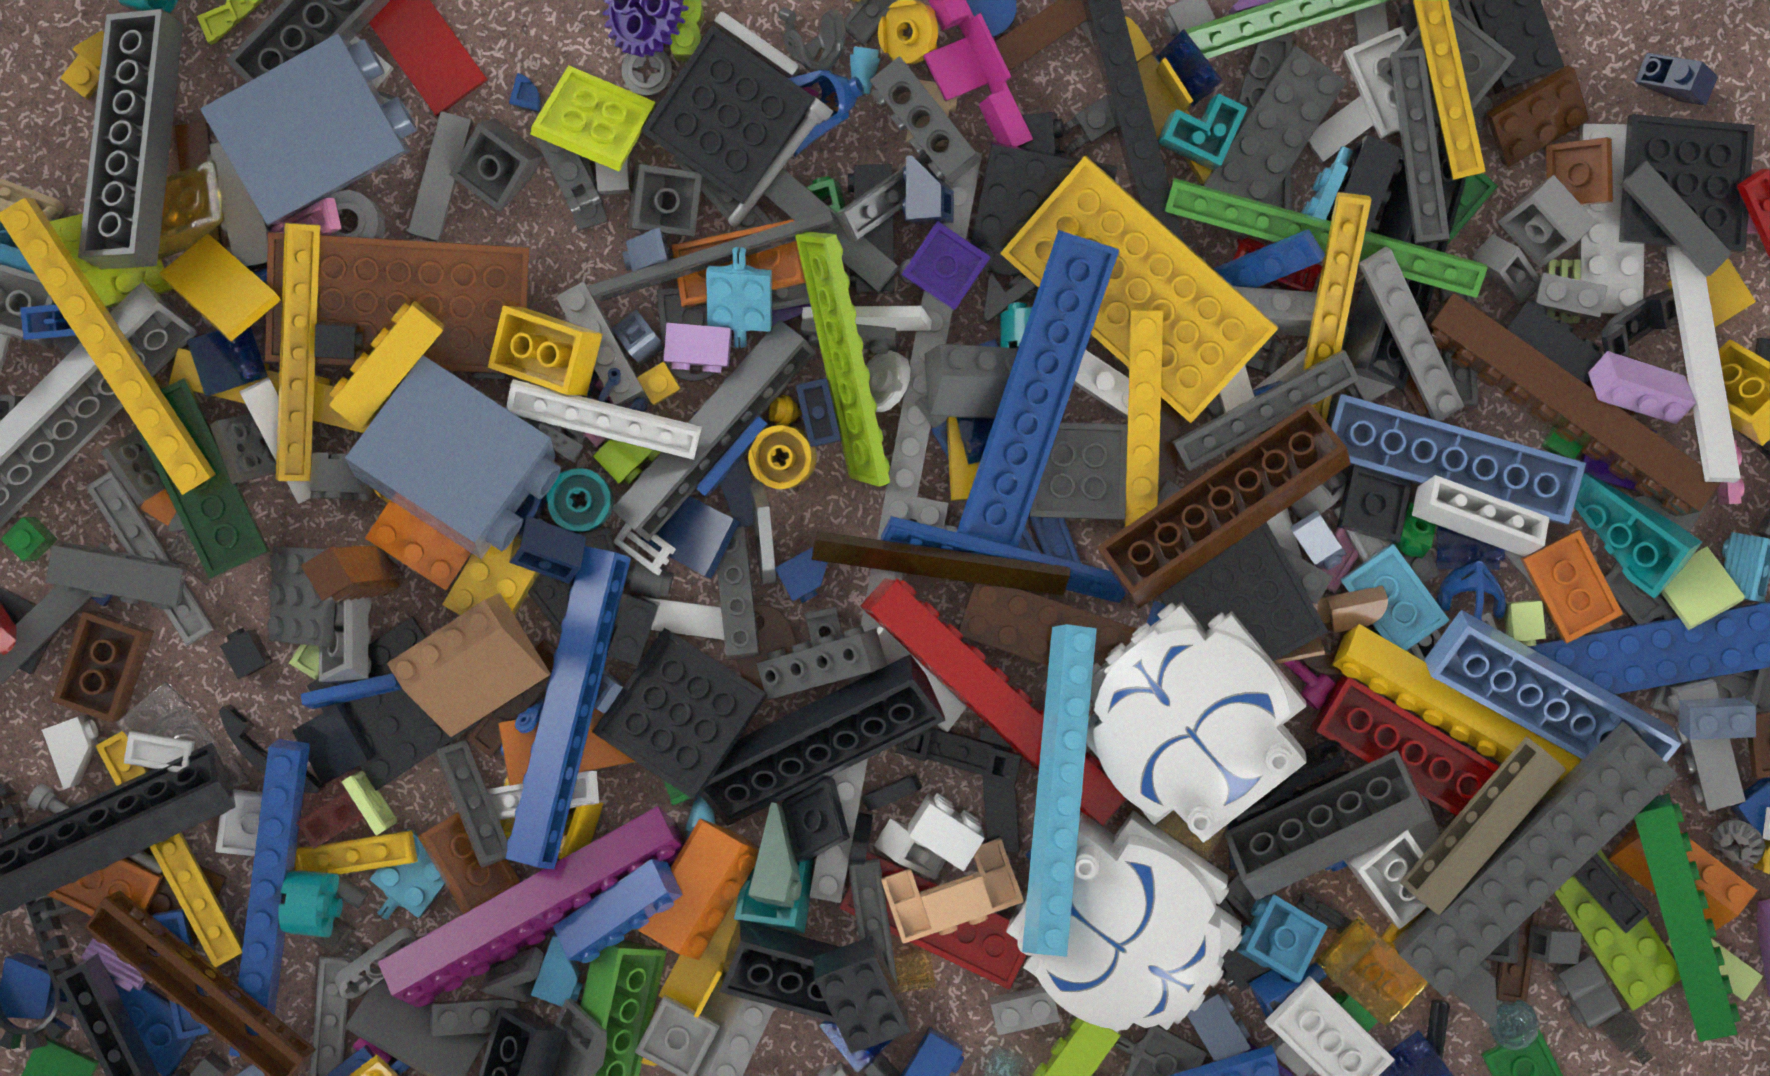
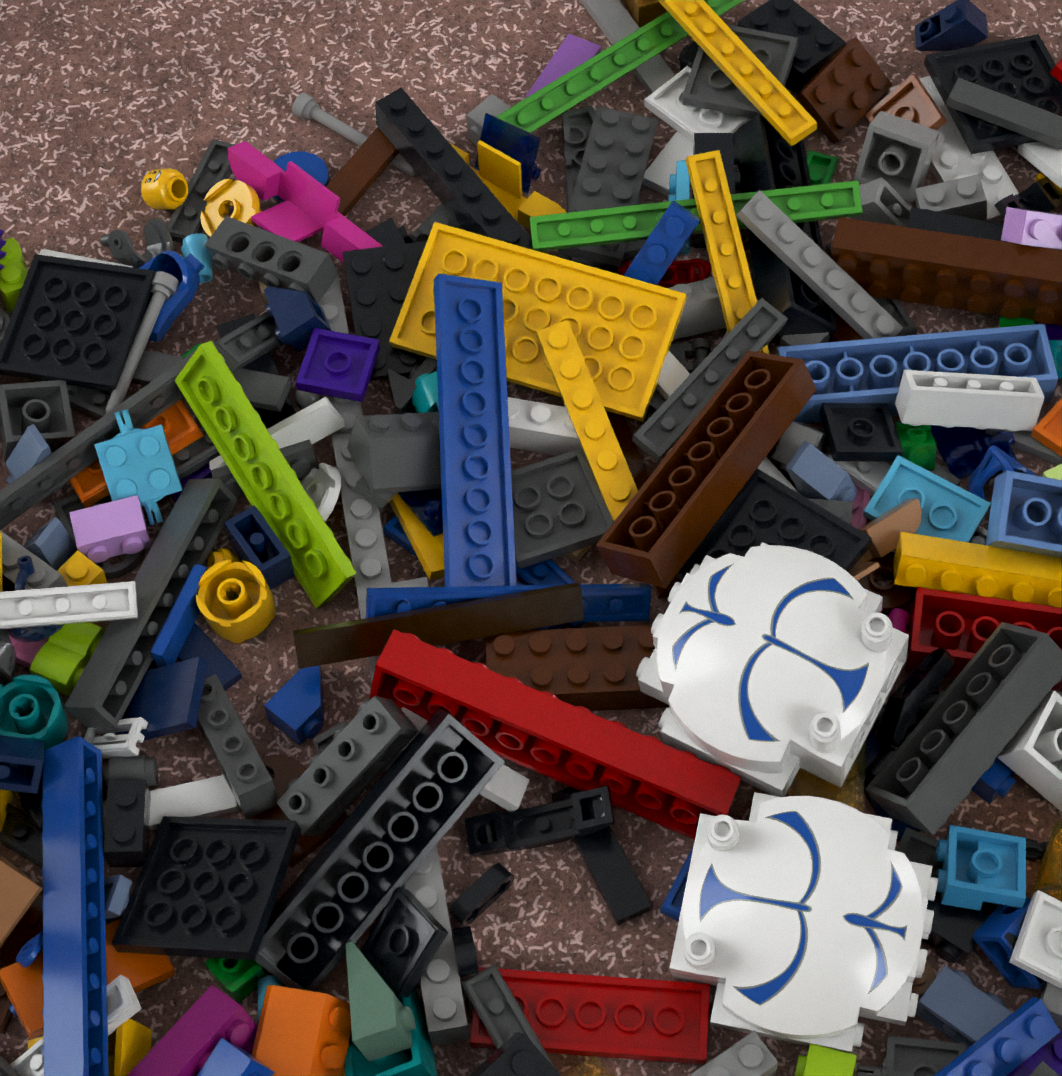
camera: 25 degrees left, 30 degrees down
(763, 533) = (240, 674): dark grey tile -> none
(906, 851) = (528, 945): white slope -> none
(946, 831) = (555, 893): white brick -> none
(956, 901) = (597, 971): light nougat bracket -> none
(1059, 790) = (662, 784): medium azure brick -> none
(1205, 139) = (540, 189): teal brick -> none
(1419, 146) = (746, 124): dark grey plate -> none

